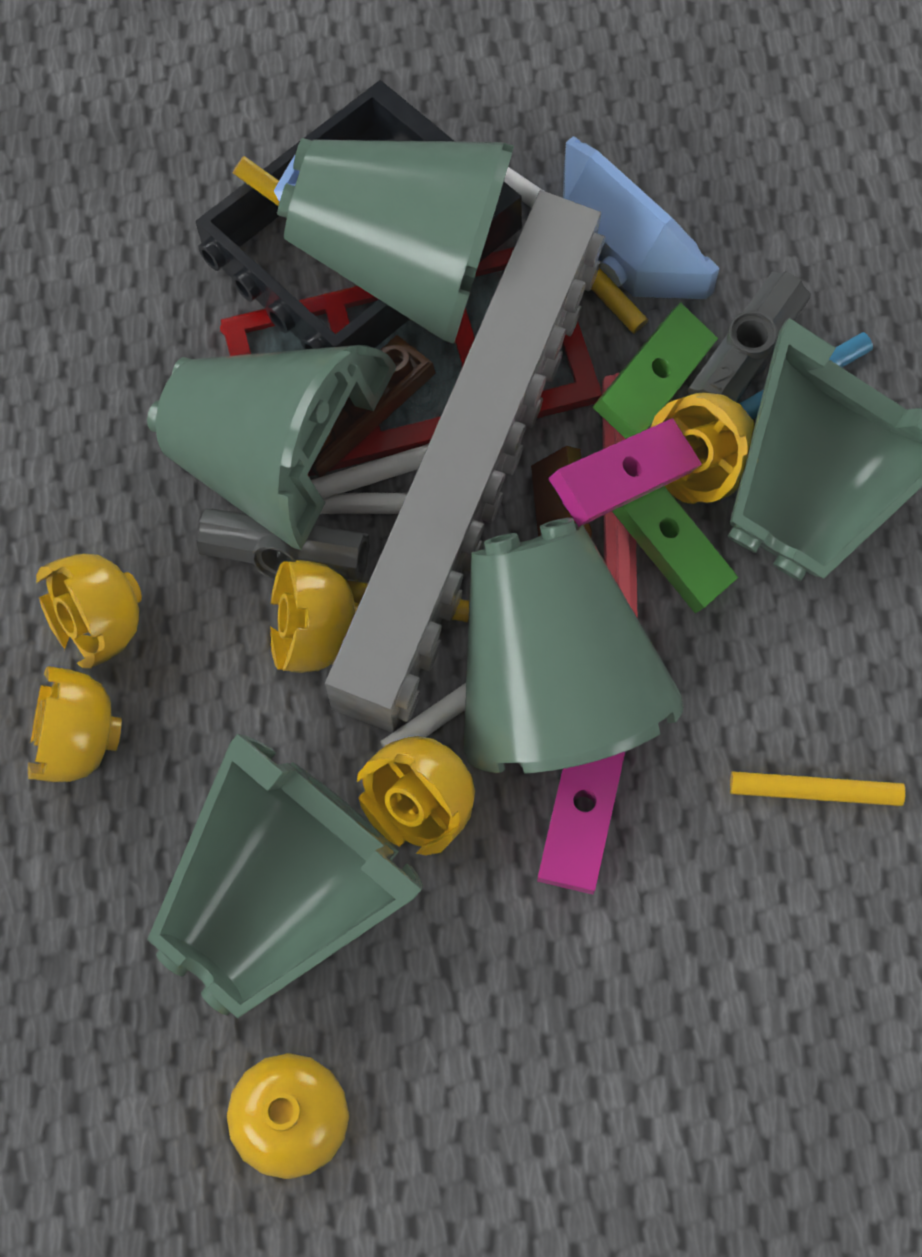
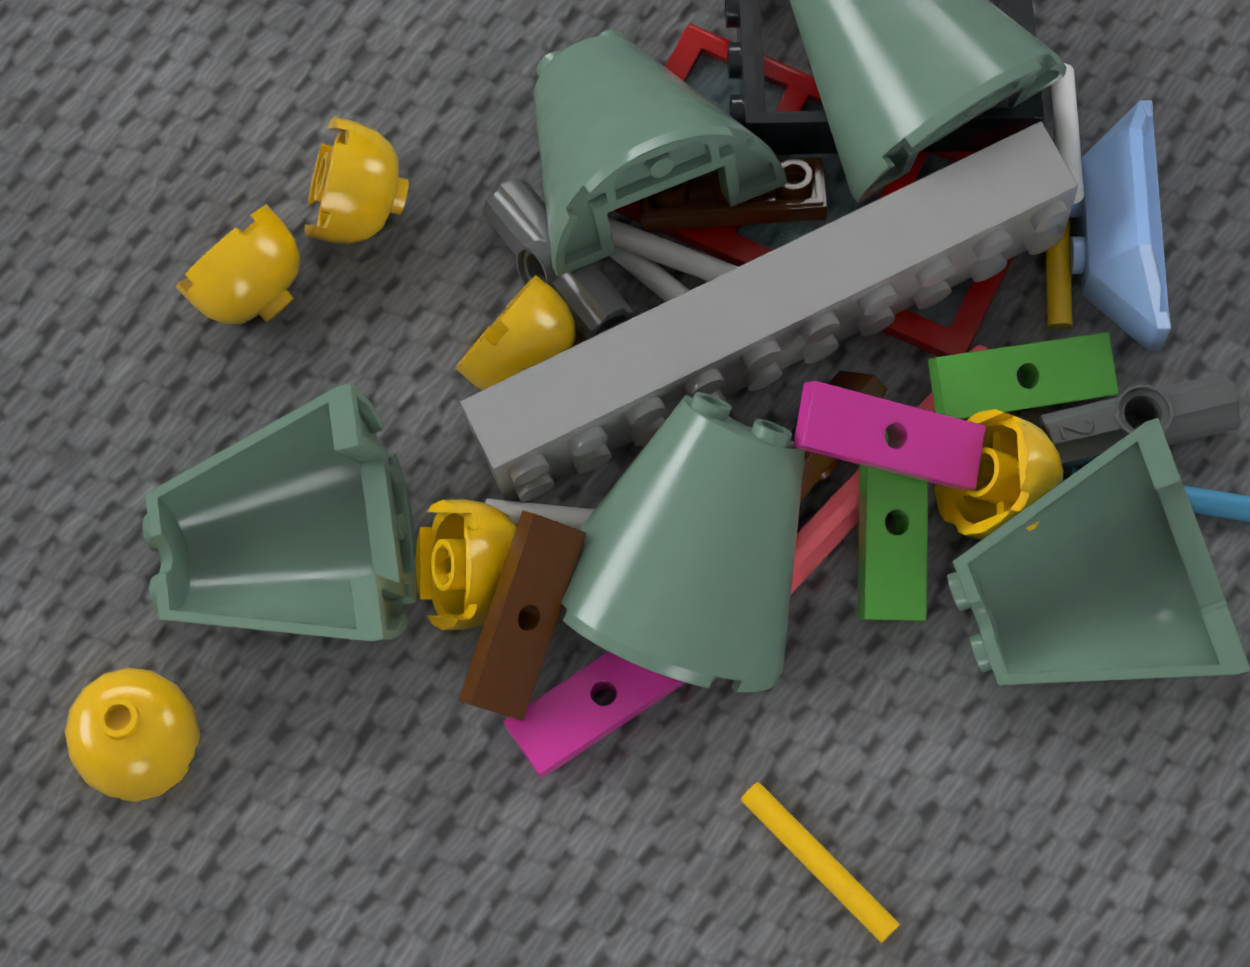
camera: 45 degrees right, 0 degrees up
(495, 793) = (522, 616): none -> reddish brown tile

